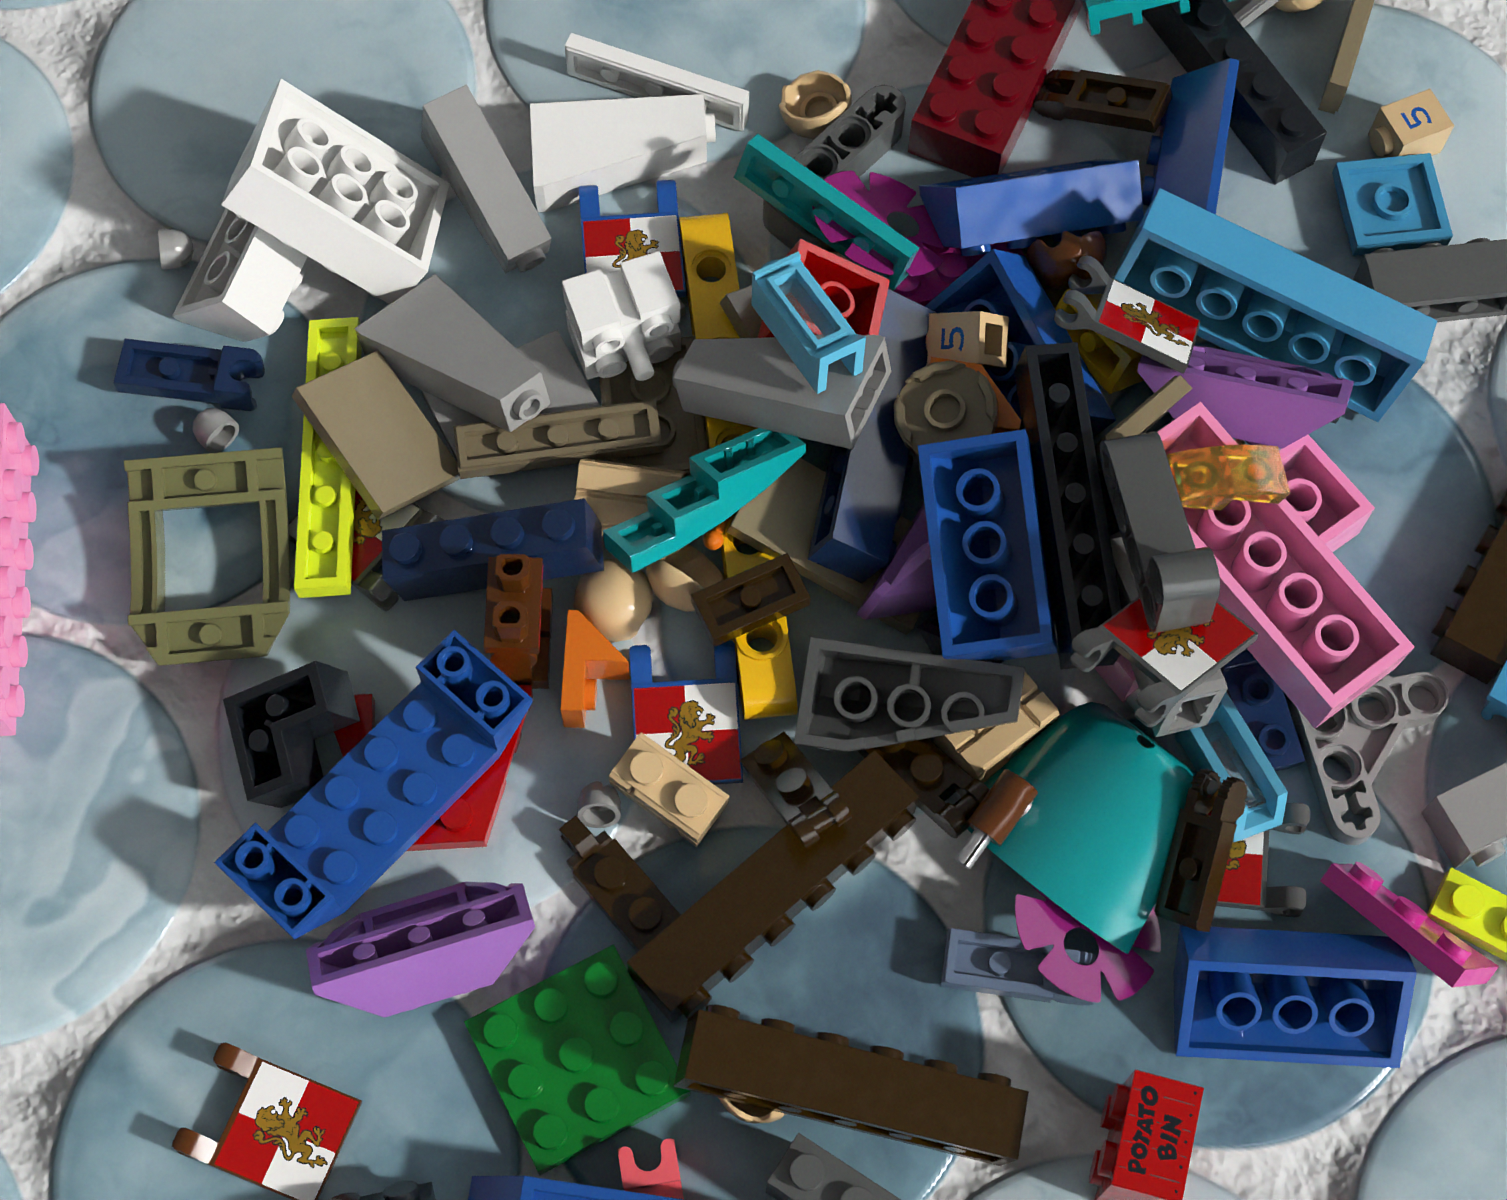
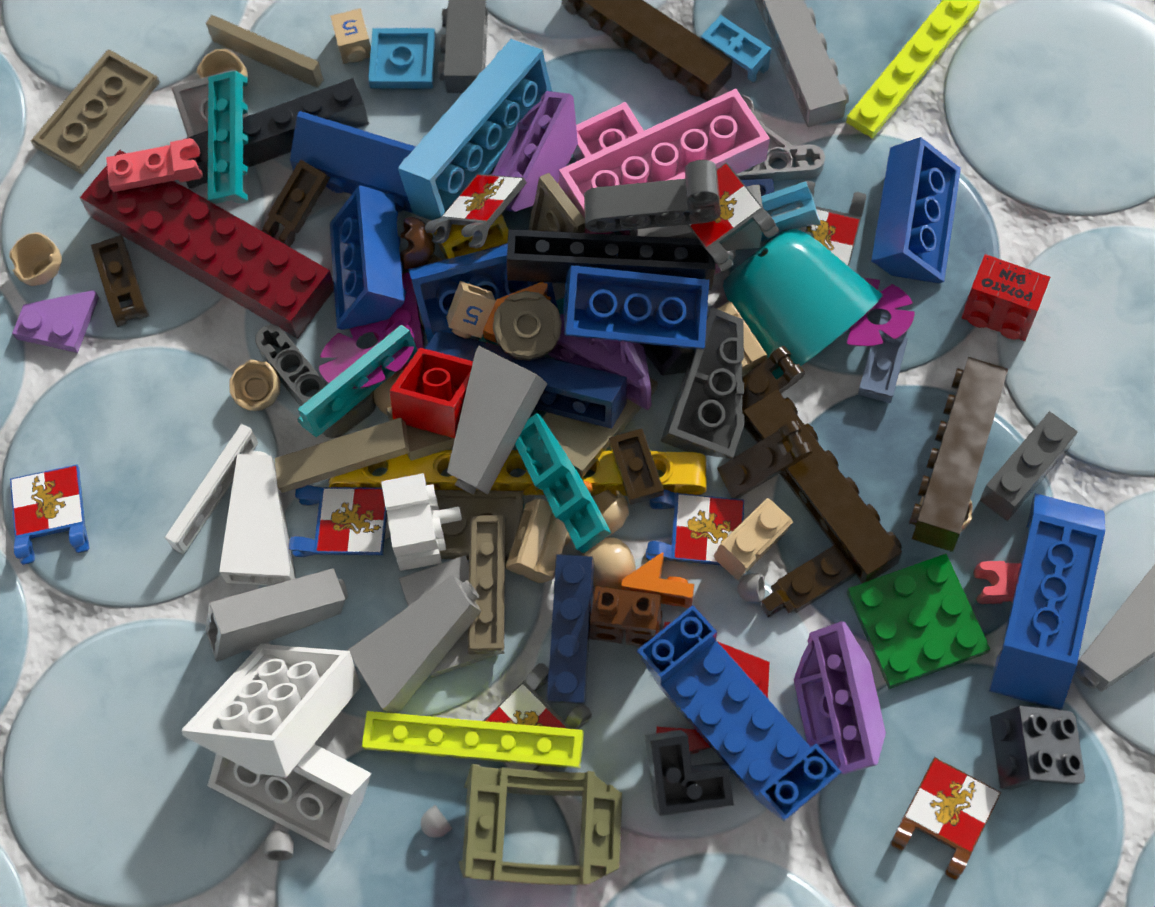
camera: 75 degrees left, 0 degrees up
(189, 372) = (386, 840): dark blue plate -> none
(377, 434) = (466, 702): dark tan tile -> none
(714, 215) = (342, 455): none -> dark tan tile
(805, 320) = (466, 386): medium azure window -> none
(996, 815) = (798, 344): reddish brown piece -> none
(1200, 850) = (835, 237): dark brown hinge -> none
(1227, 473) = (618, 157): clear yellow slope -> none
(1409, 926) = (883, 142): dark pink wing -> none

